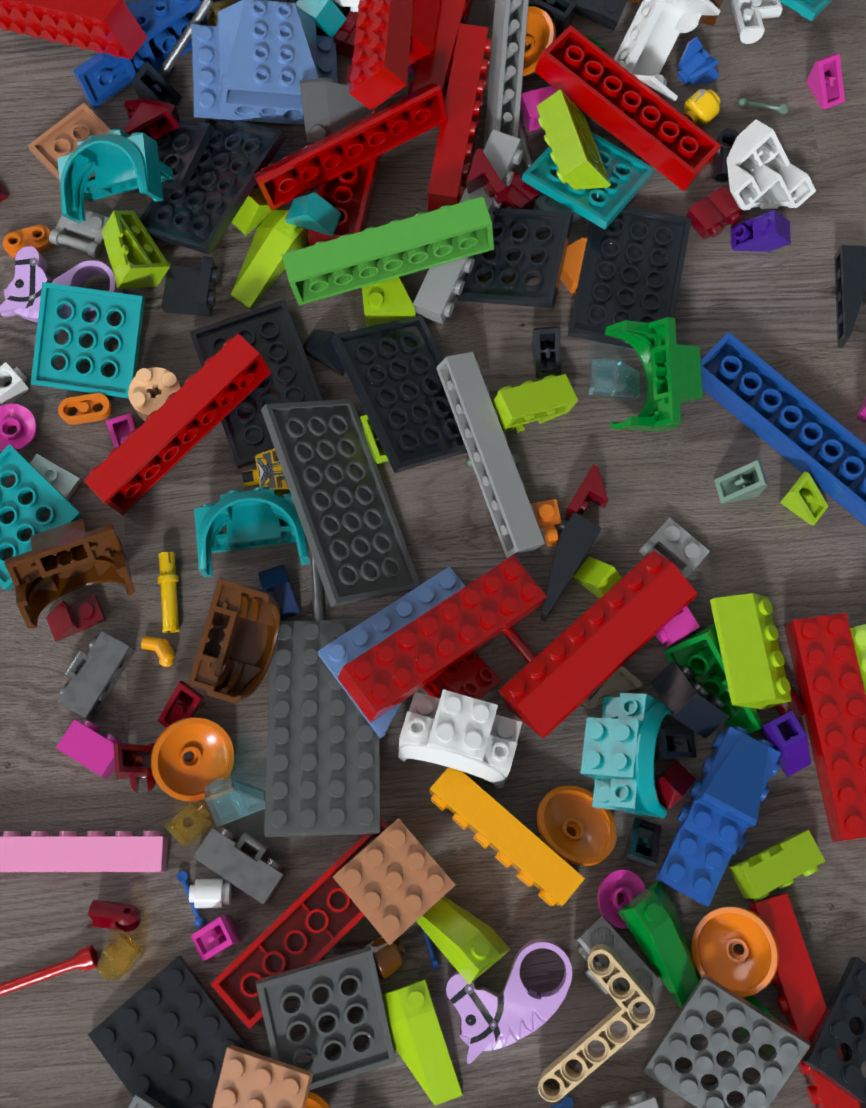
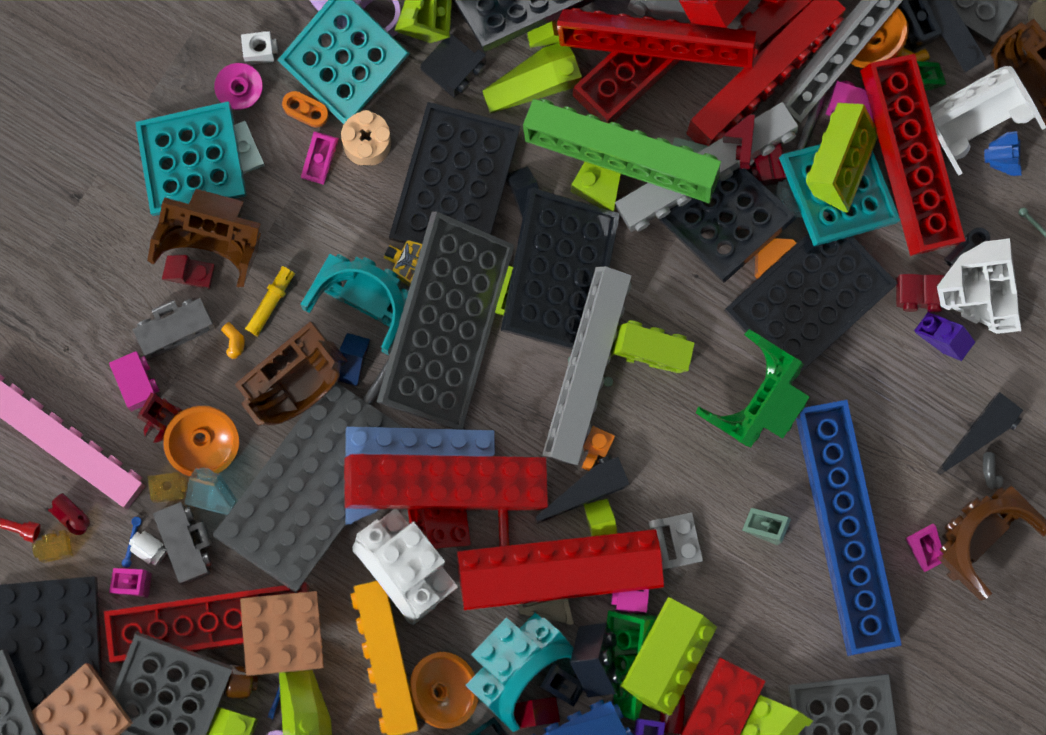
camera: 30 degrees right, 5 degrees up
(178, 425) = (364, 176): red brick -> none
(182, 704) = (220, 395): dark red slope -> none
(314, 214) = (588, 75): teal slope -> none
(546, 351) = (694, 314): black slope -> none
(591, 489) = (647, 446): dark red slope -> none
(613, 379) = (731, 373): clear light blue slope -> none
(702, 106) = (981, 194): yellow head -> none
(805, 499) = (808, 575): lime slope -> none

